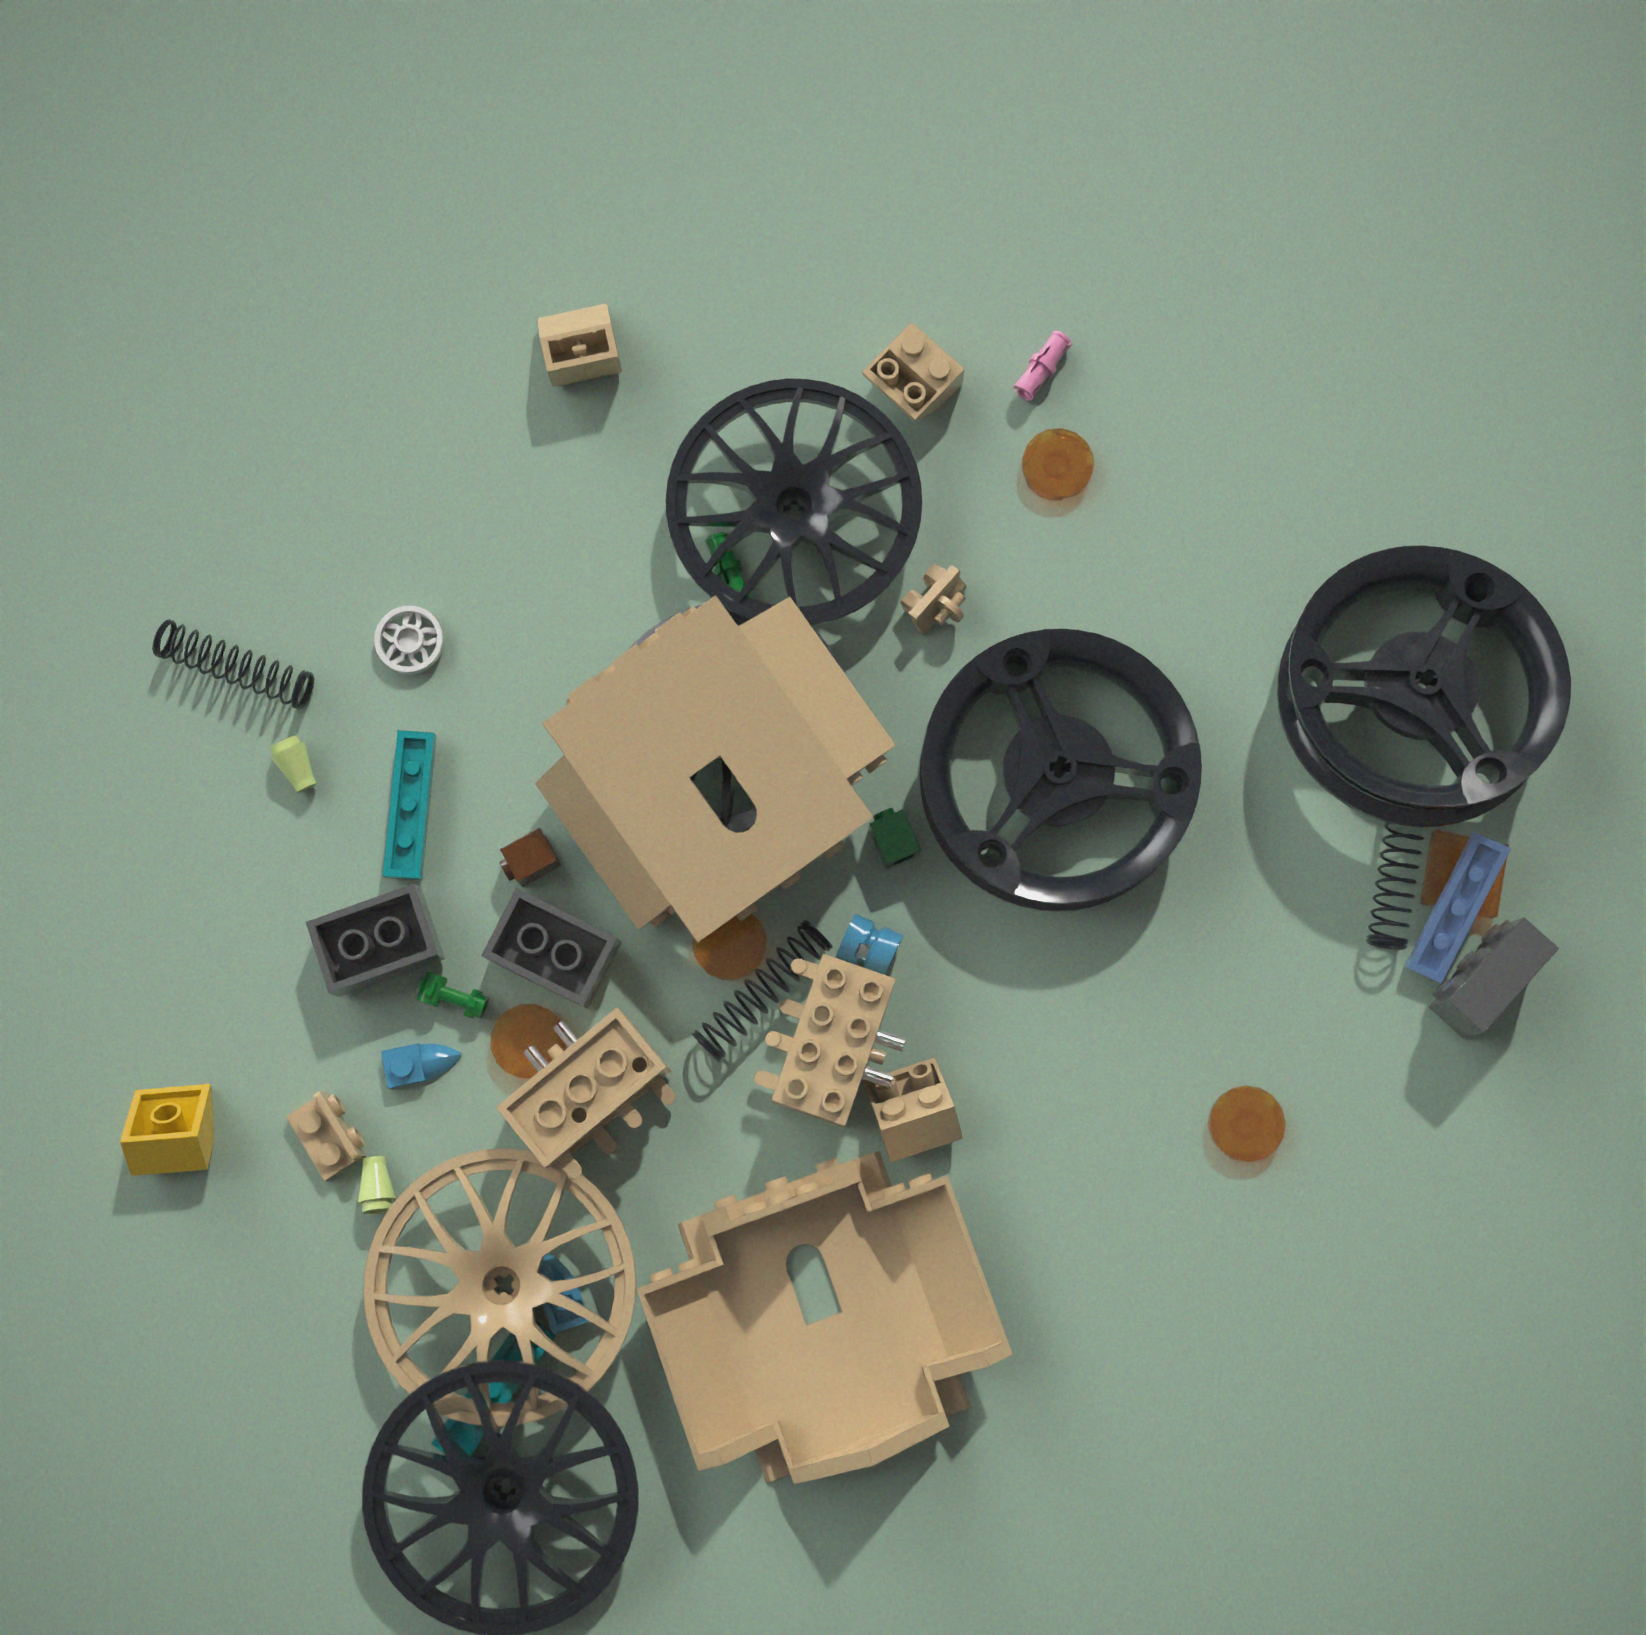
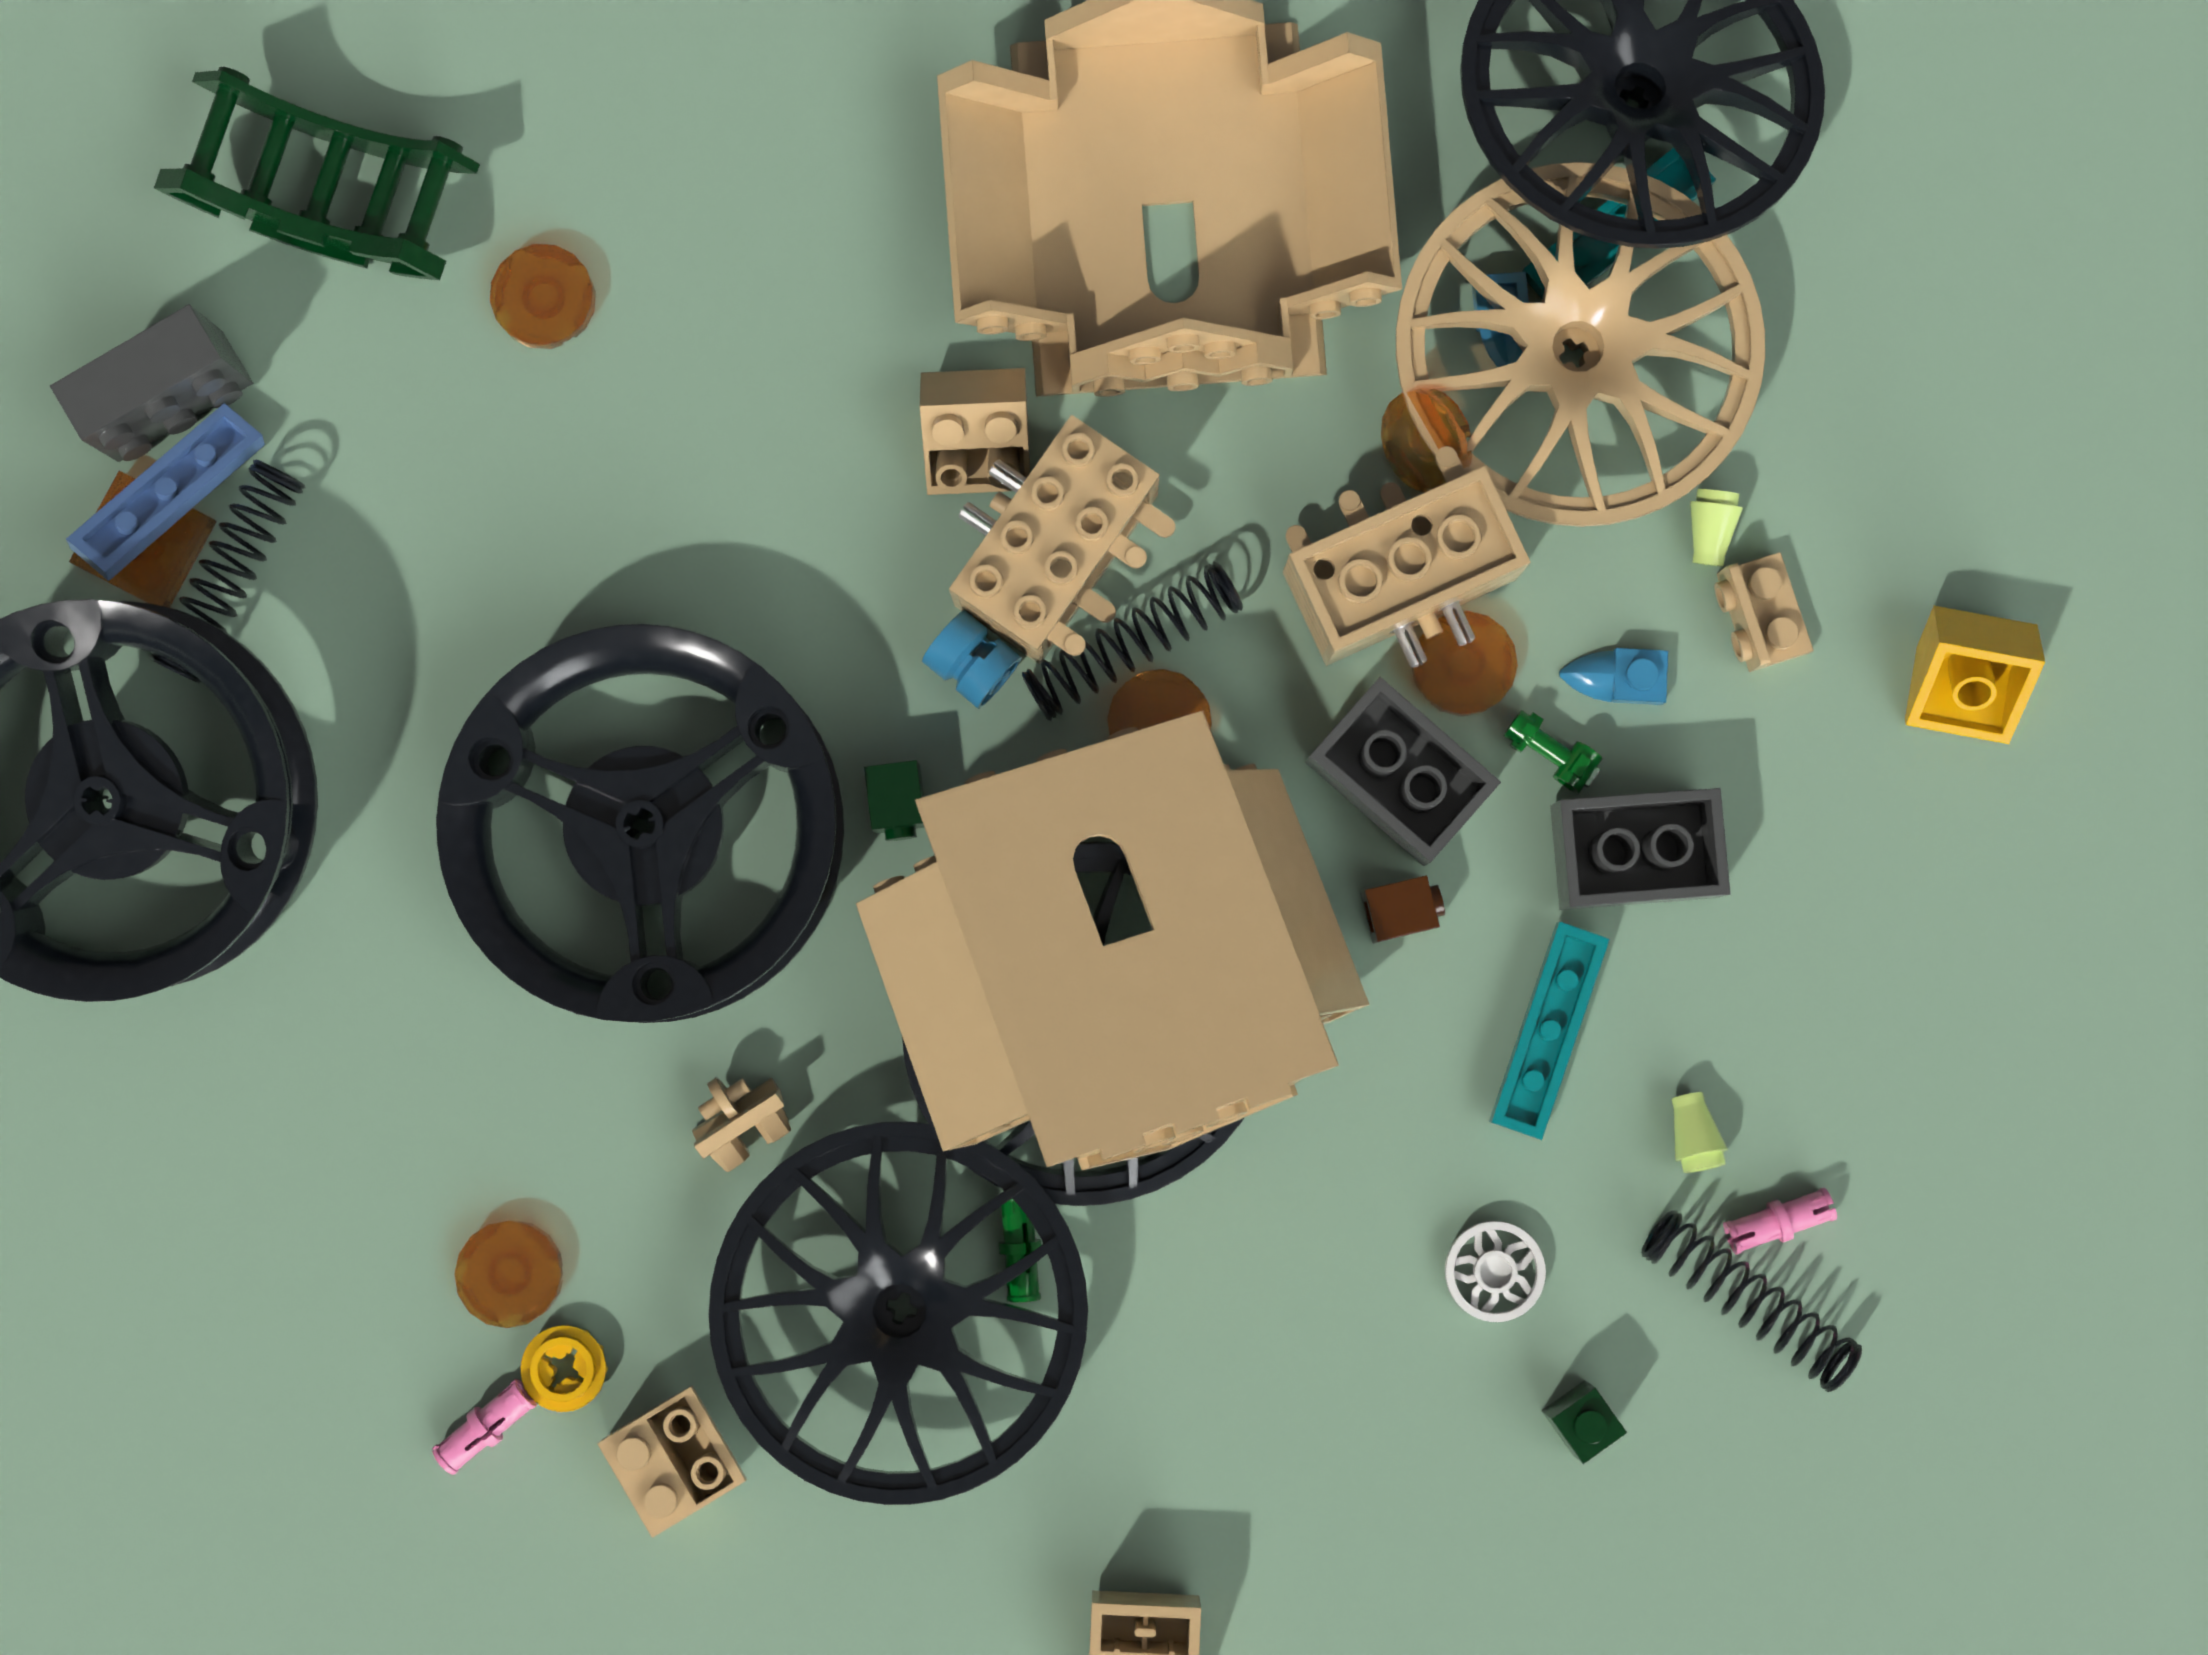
camera: 165 degrees left, 5 degrees up
(225, 722) = (1780, 1220): none -> bright pink pin
(327, 557) = (1584, 1421): none -> dark green brick
(605, 1178) = (1405, 447): none -> clear orange tile
(993, 402) = (539, 1372): none -> yellow gear
(1424, 1125) = (311, 228): none -> dark green fence

